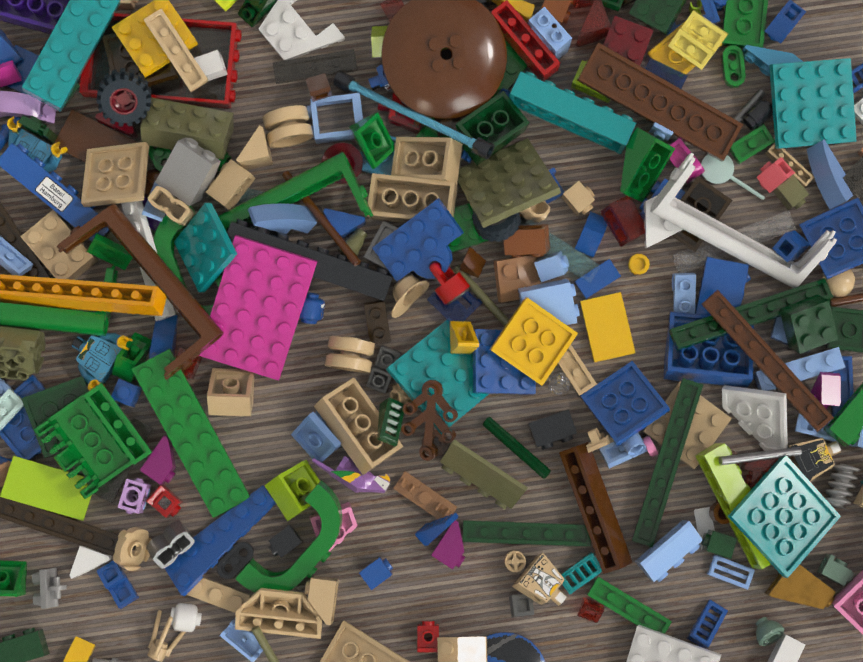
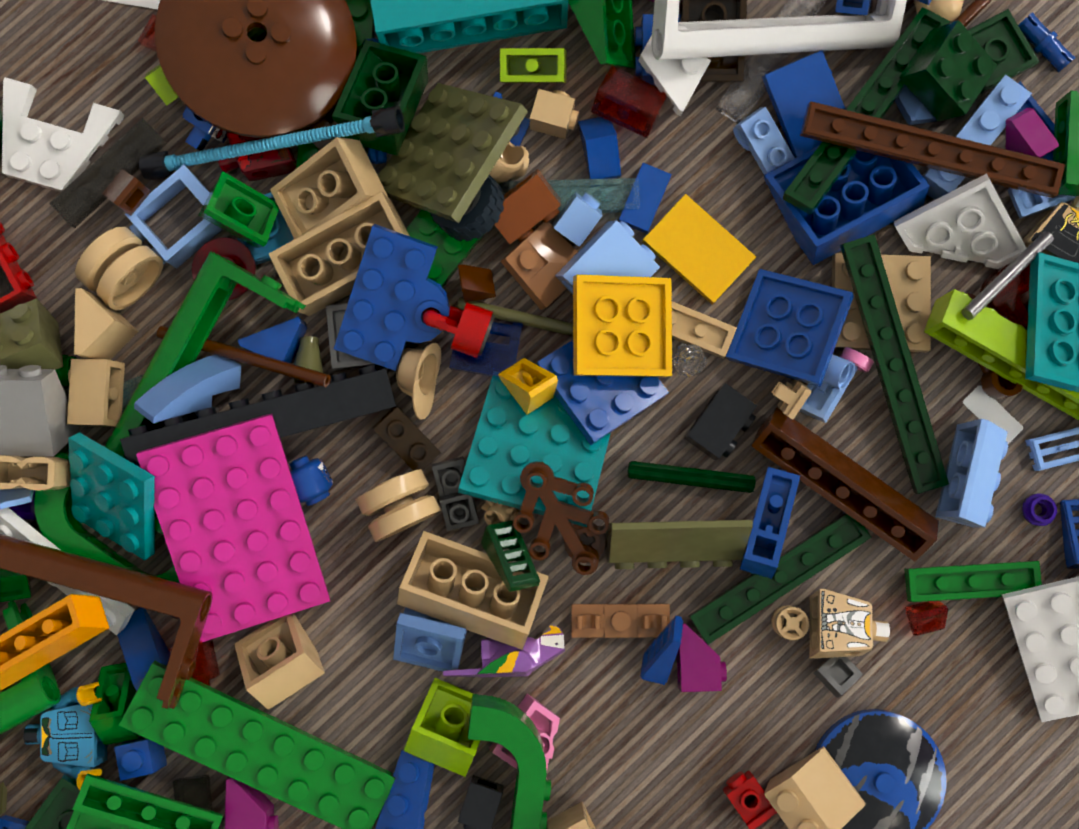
camera: 35 degrees left, 0 degrees up
(376, 572) = (625, 762): blue brick -> none
(539, 499) = (770, 523): none -> blue slope
(582, 562) = (897, 573): teal slope -> none
(585, 165) = (533, 65): none -> lime brick
(638, 264) = (682, 146): yellow tile -> none
(699, 598) = (1048, 507): none -> dark purple plate
(718, 543) = (1028, 422): dark green brick -> none

